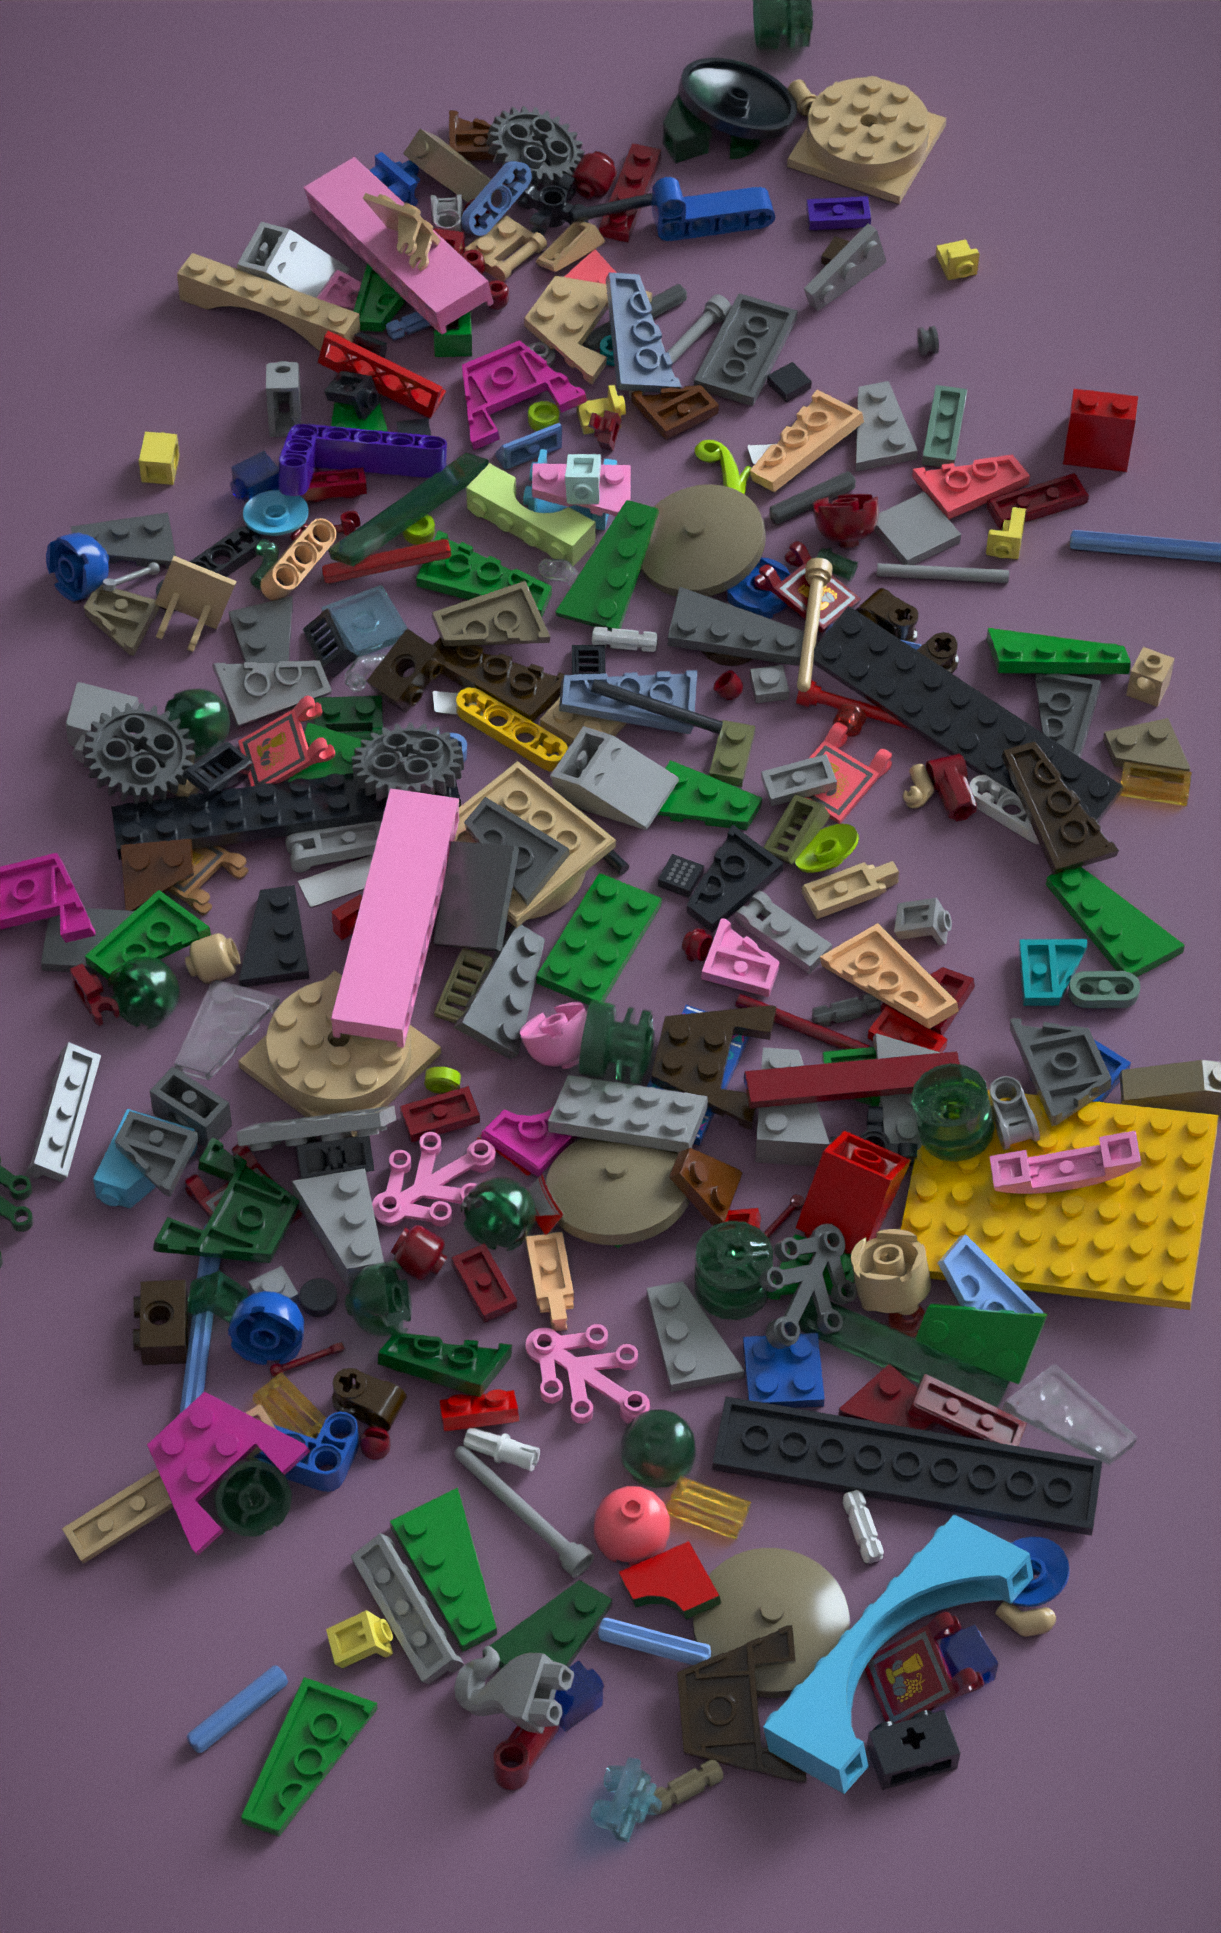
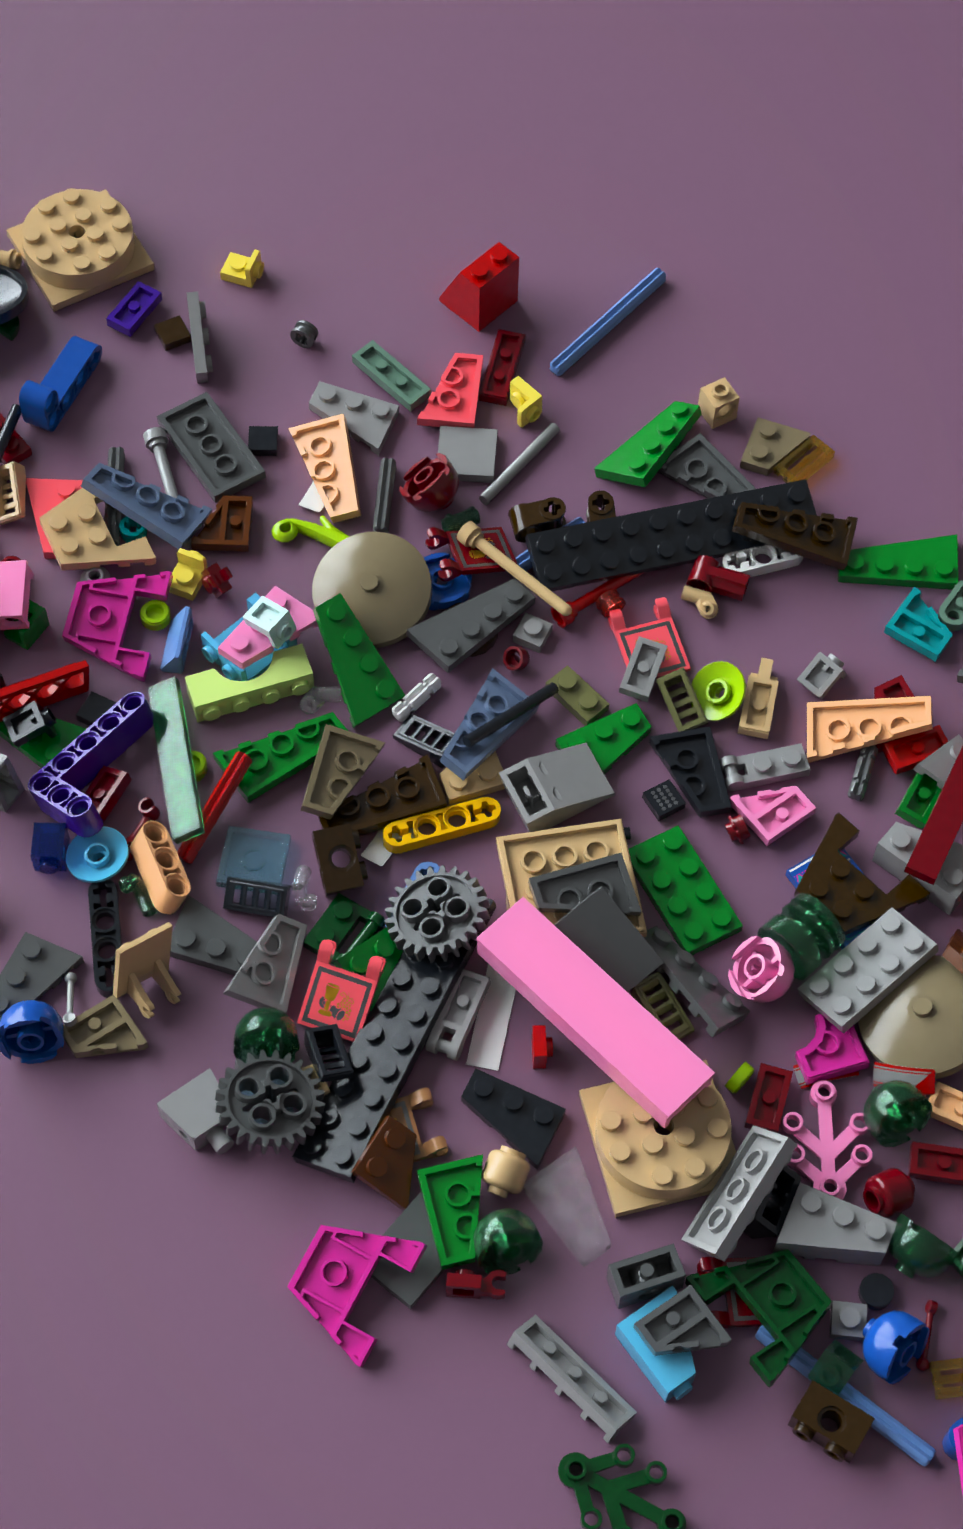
camera: 55 degrees left, 5 degrees up
(804, 1026) = (856, 807): dark red bar -> none

